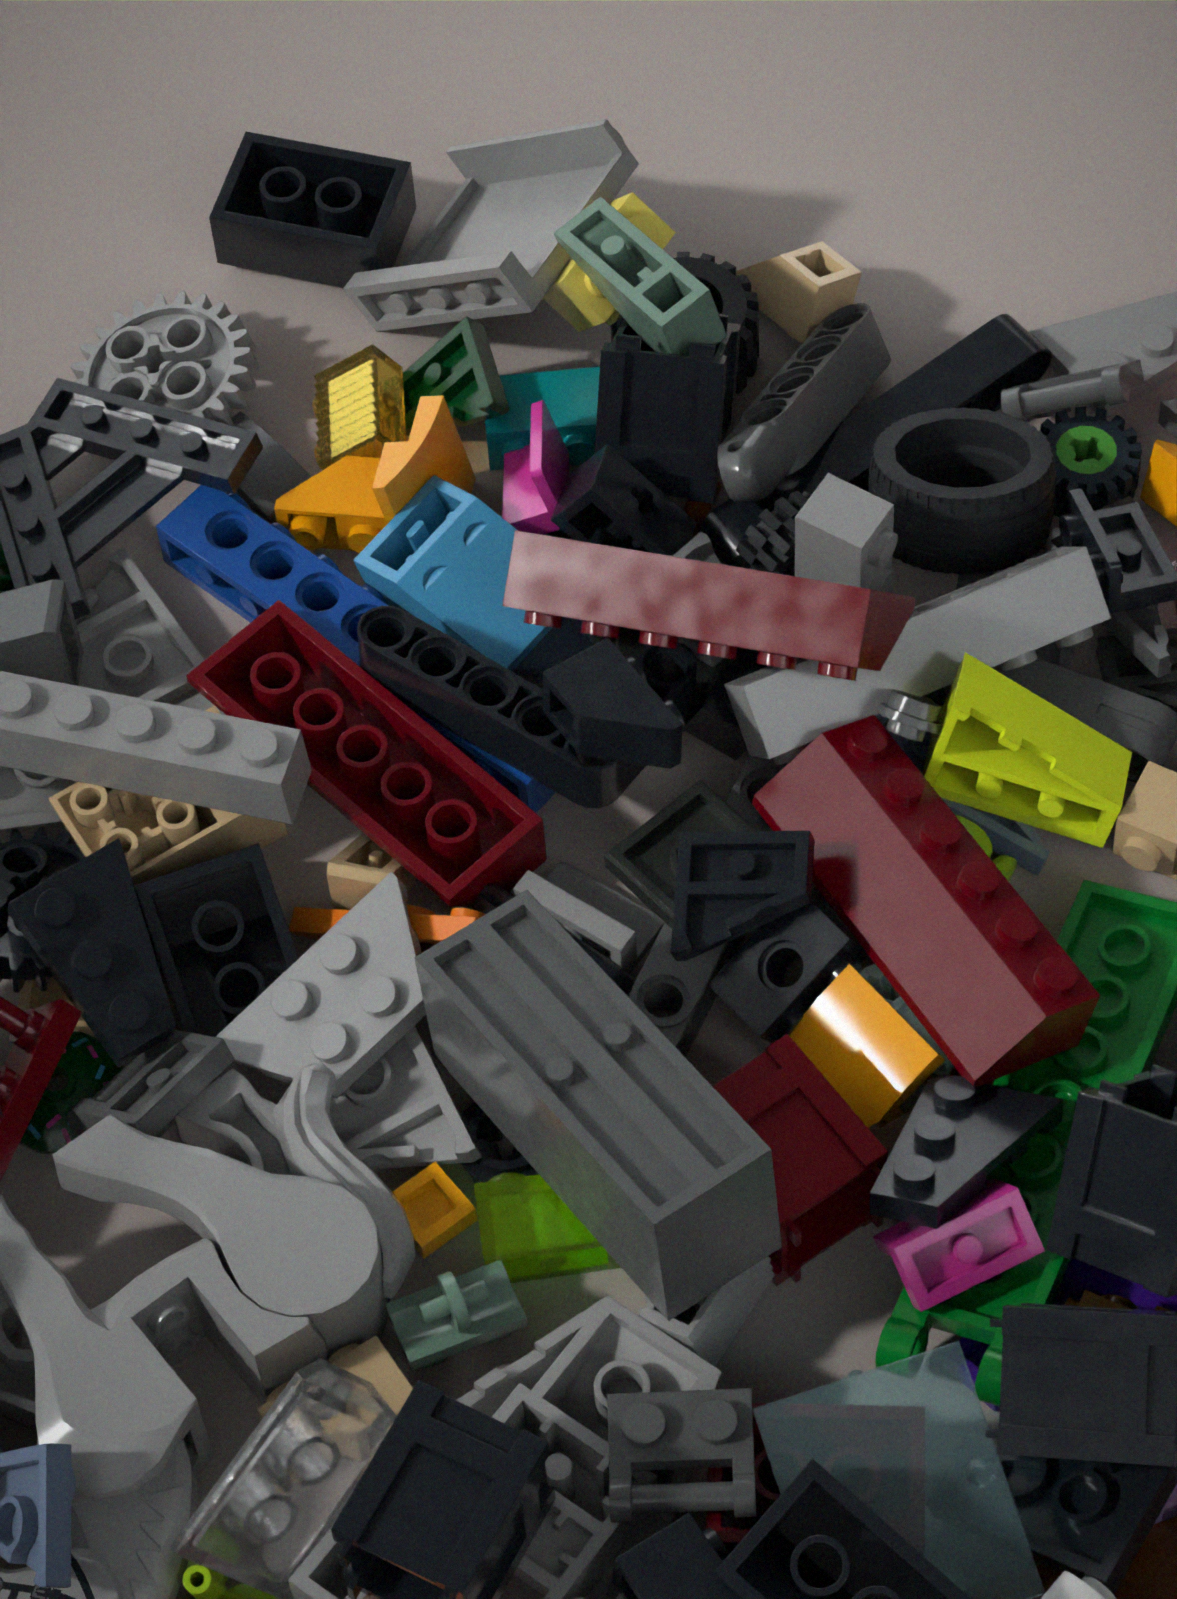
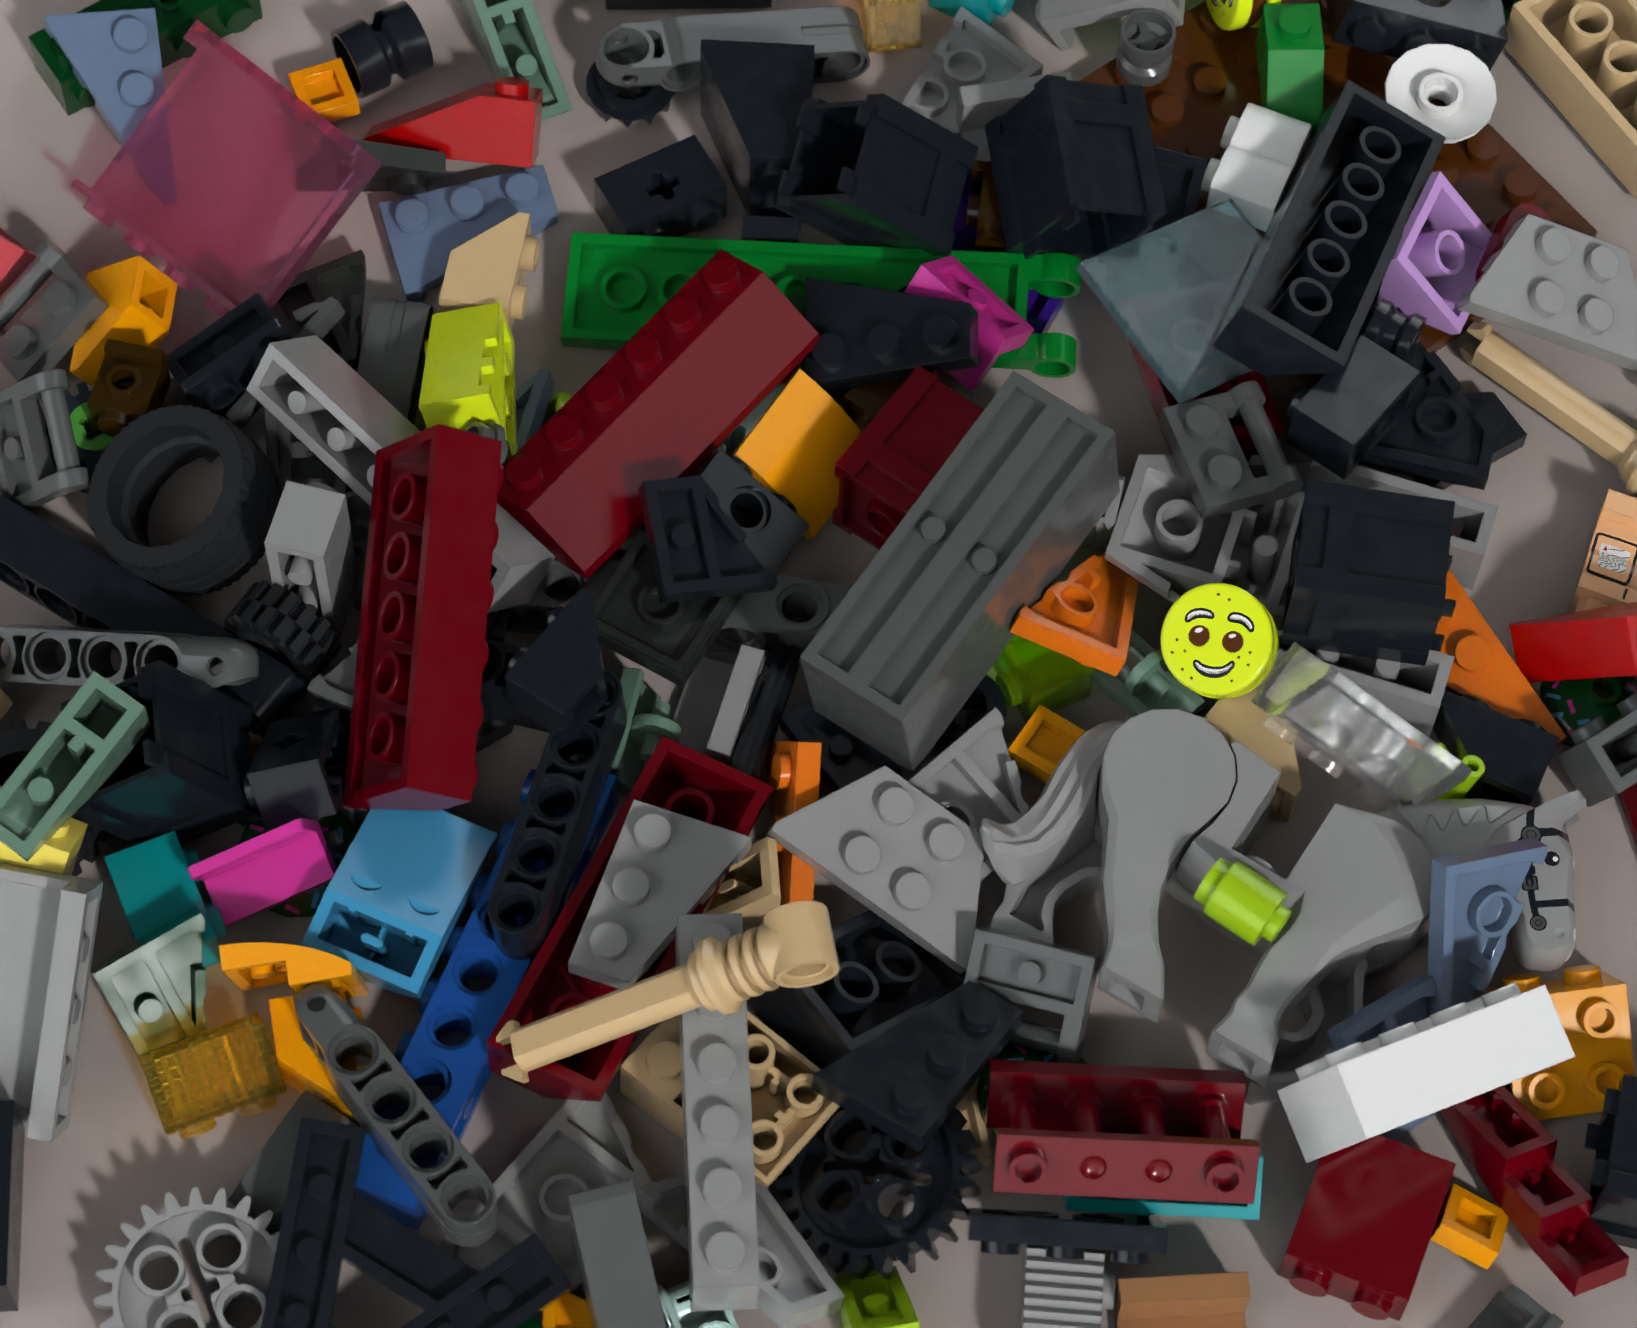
camera: 115 degrees left, 5 degrees up
(114, 1255) = (1243, 901): none -> lime brick
(200, 713) = (787, 951): none -> tan piece
(230, 512) = (337, 1033): none -> dark grey piece
(374, 759) = (655, 873): none -> light grey wing
(451, 1346) = (1219, 641): none -> neon yellow head
(536, 1248) = (1085, 616): none -> orange wing
(586, 831) = (644, 729): none -> sand green hips
(1101, 463) = (127, 385): none -> dark brown brick

